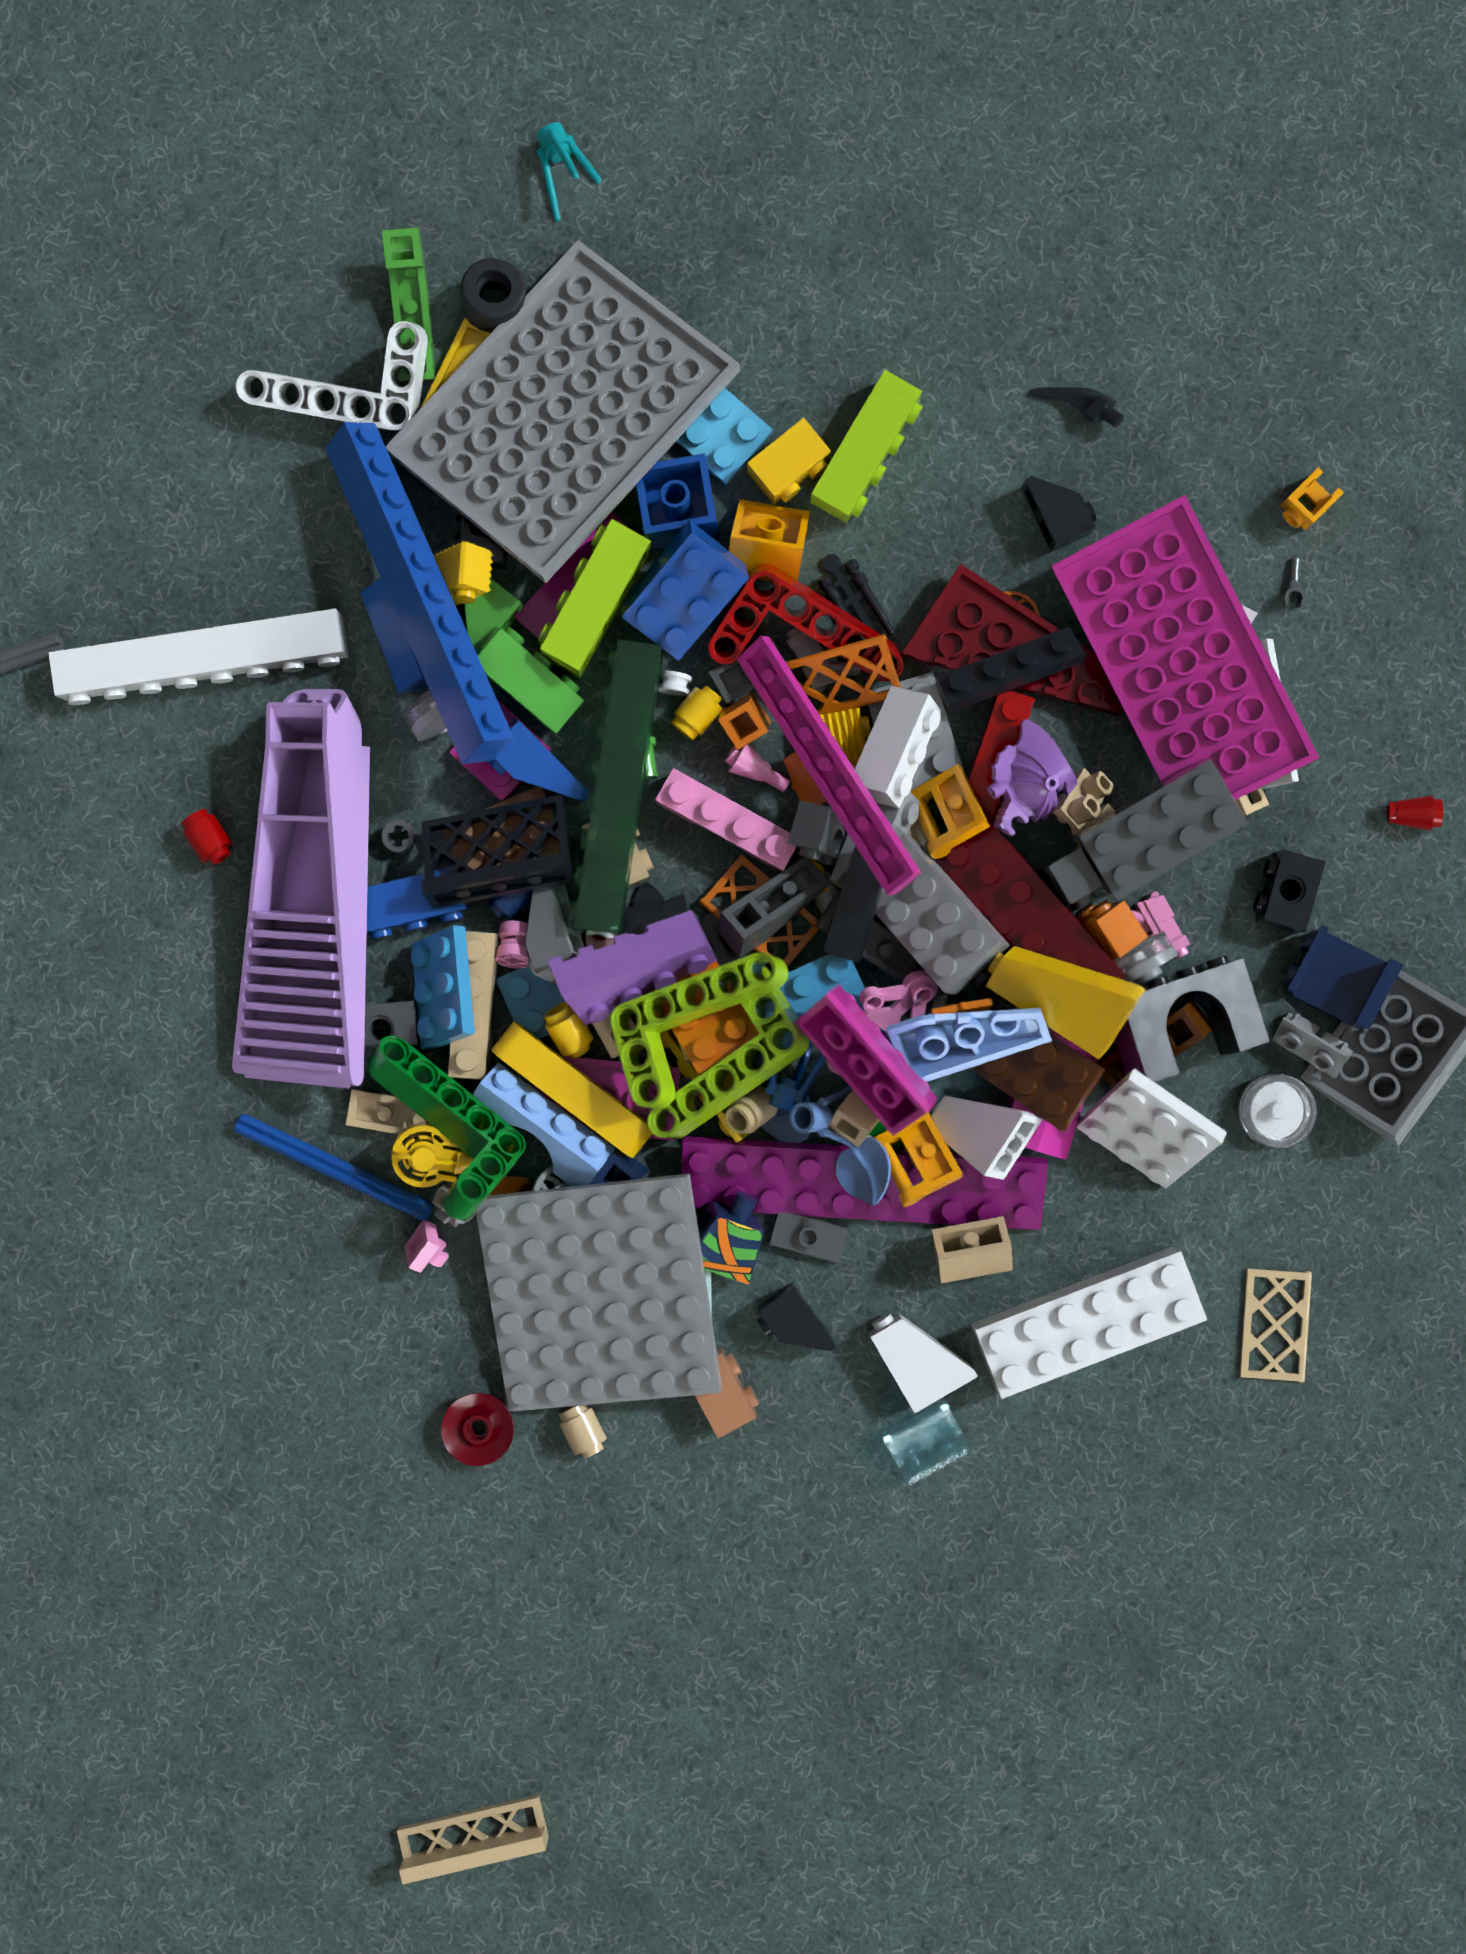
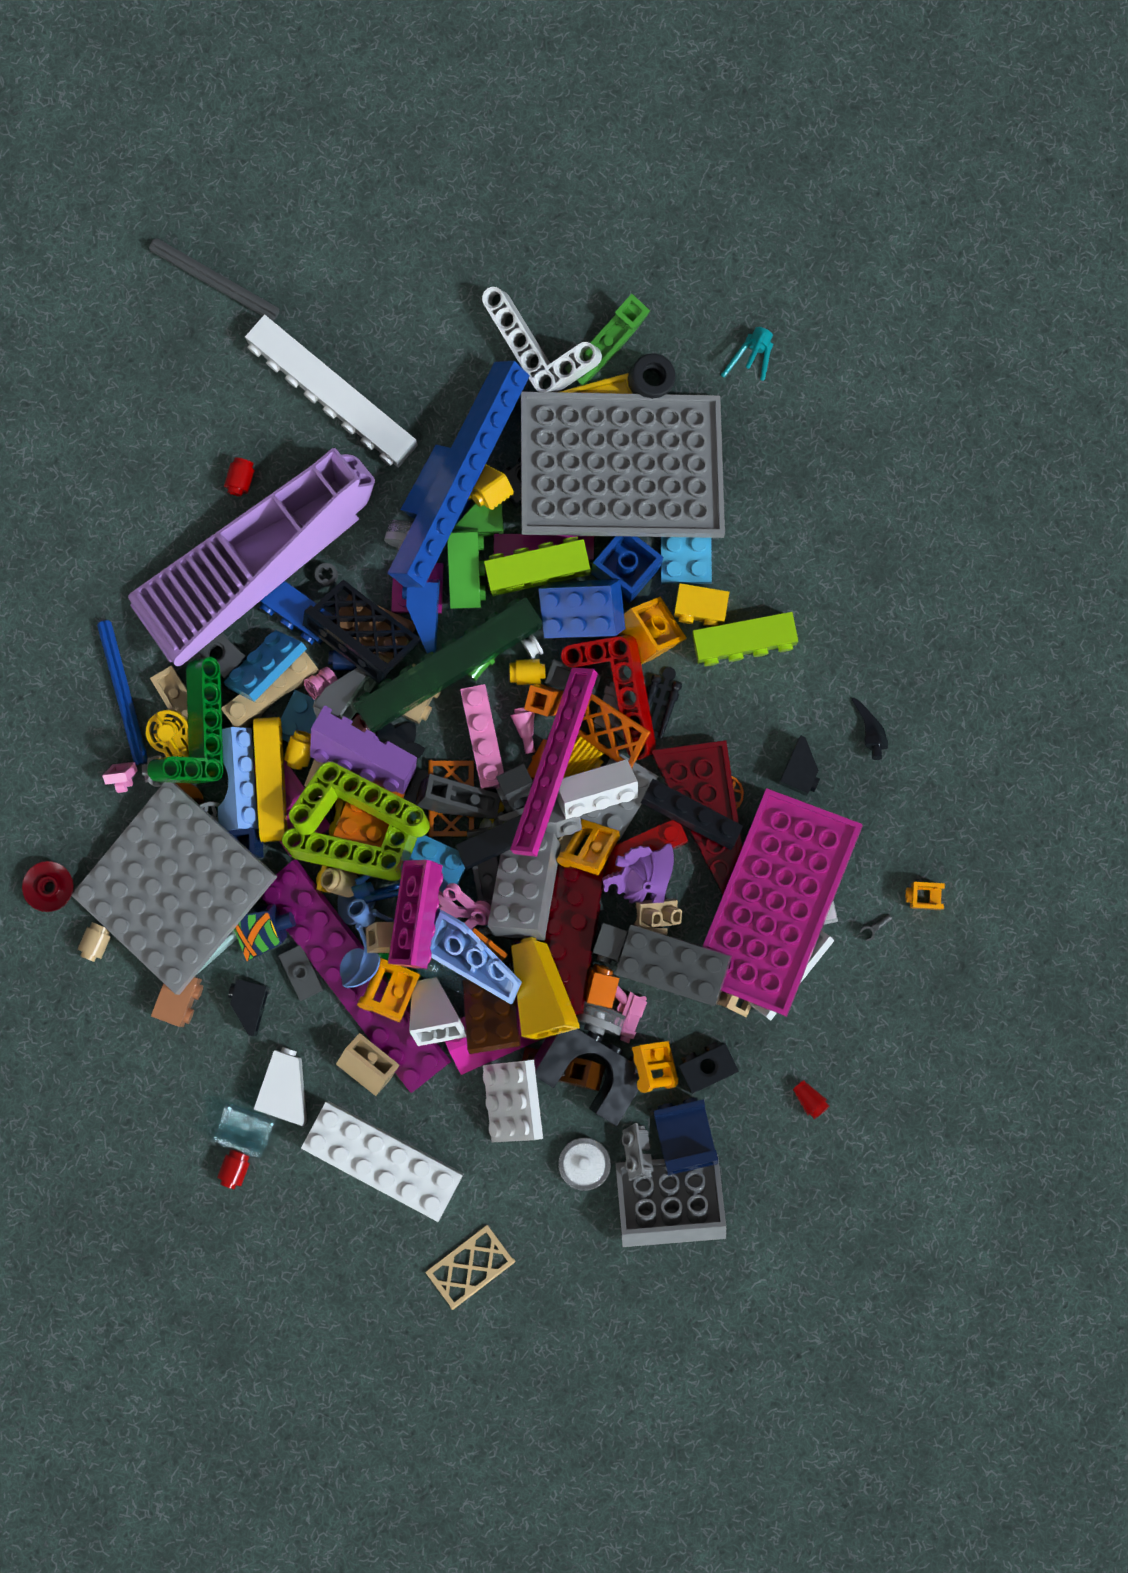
camera: 50 degrees right, 5 degrees down
(957, 1488) = (233, 1169): none -> red brick
(1231, 944) = (654, 1057): none -> light orange plate

